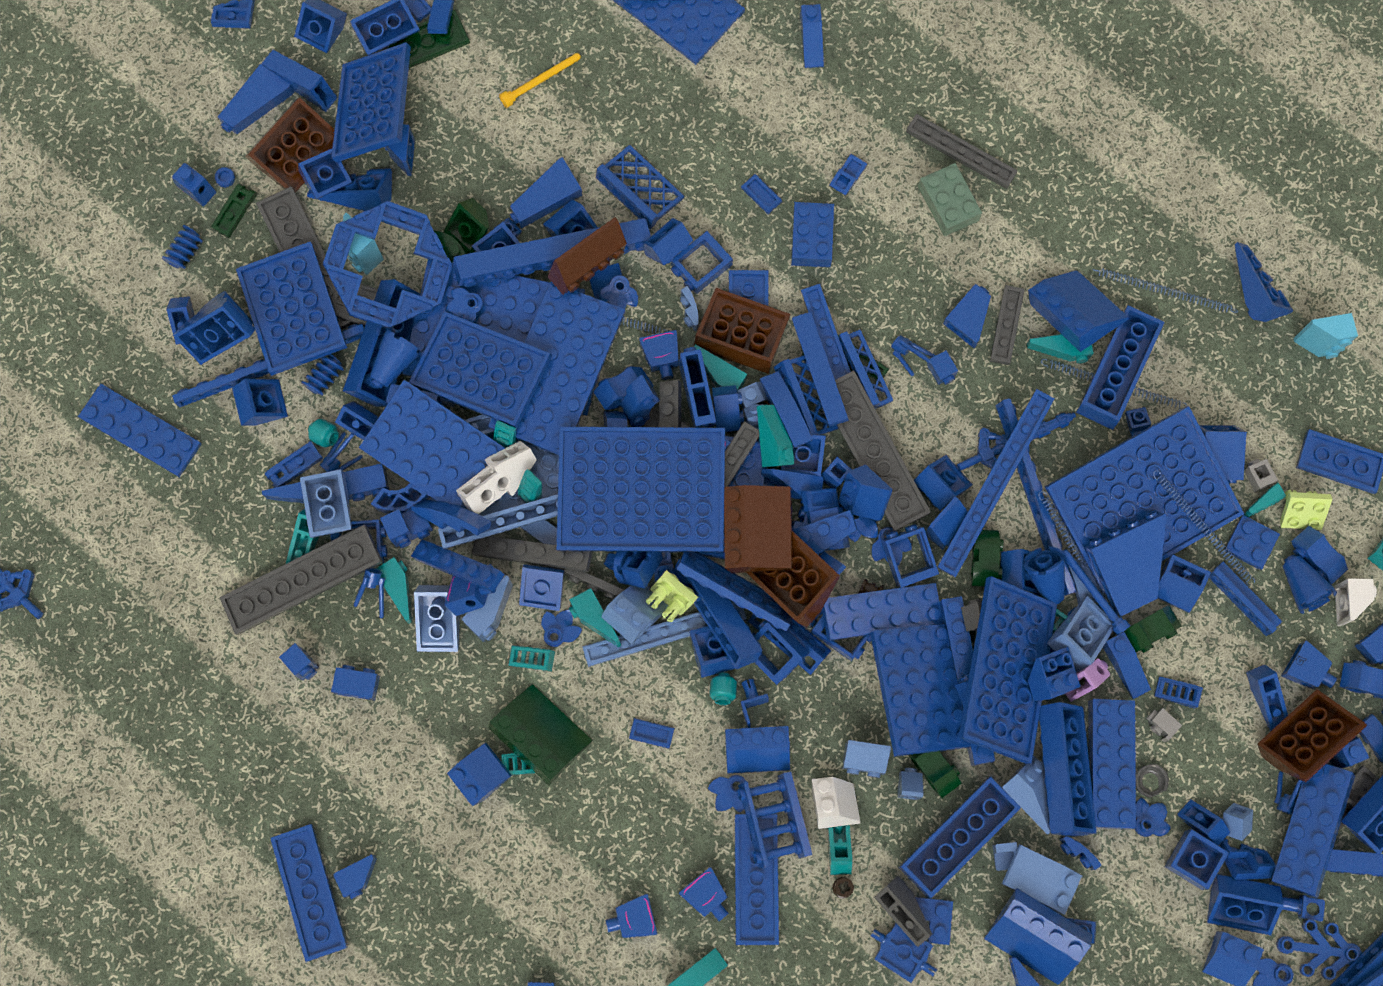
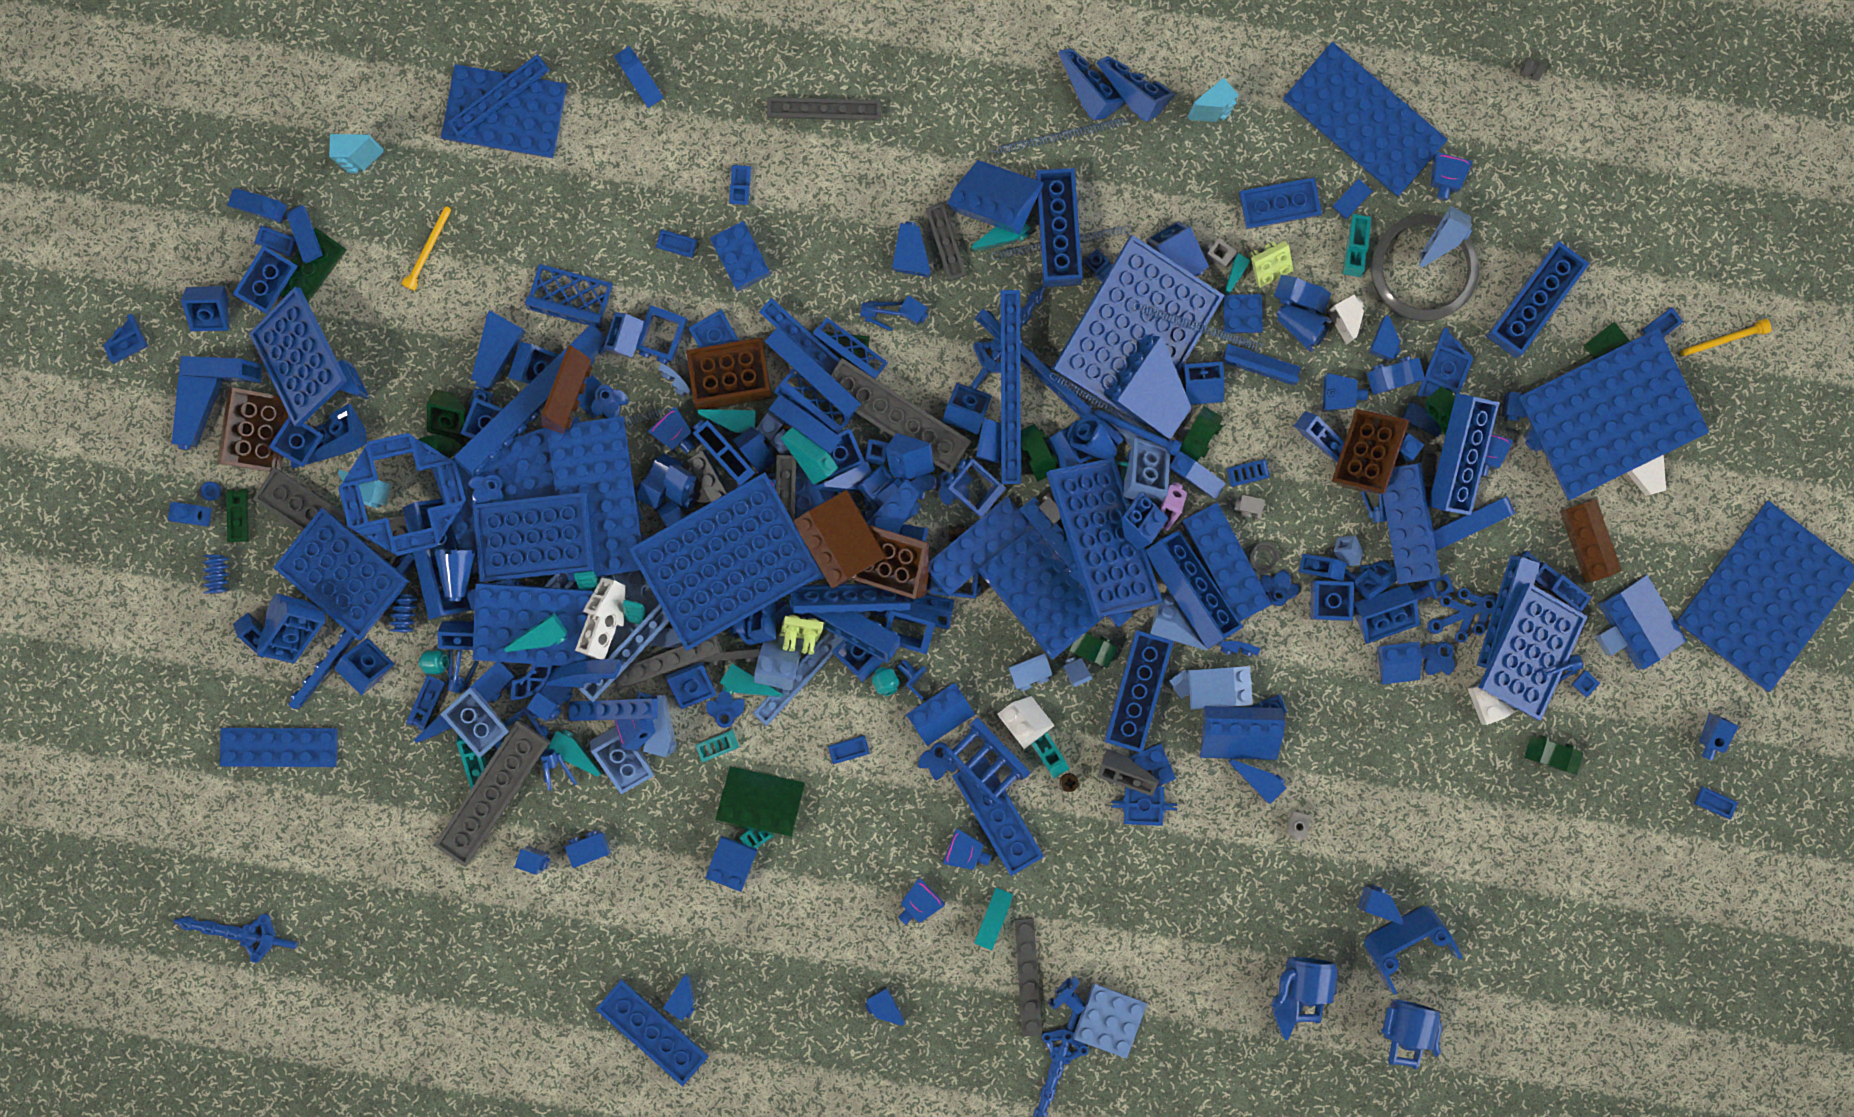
camera: 30 degrees left, 10 degrees up
(437, 459) = (541, 635): none -> teal slope
(949, 199) = (838, 159): sand green brick -> none
(1216, 269) = (1094, 94): none -> blue wedge

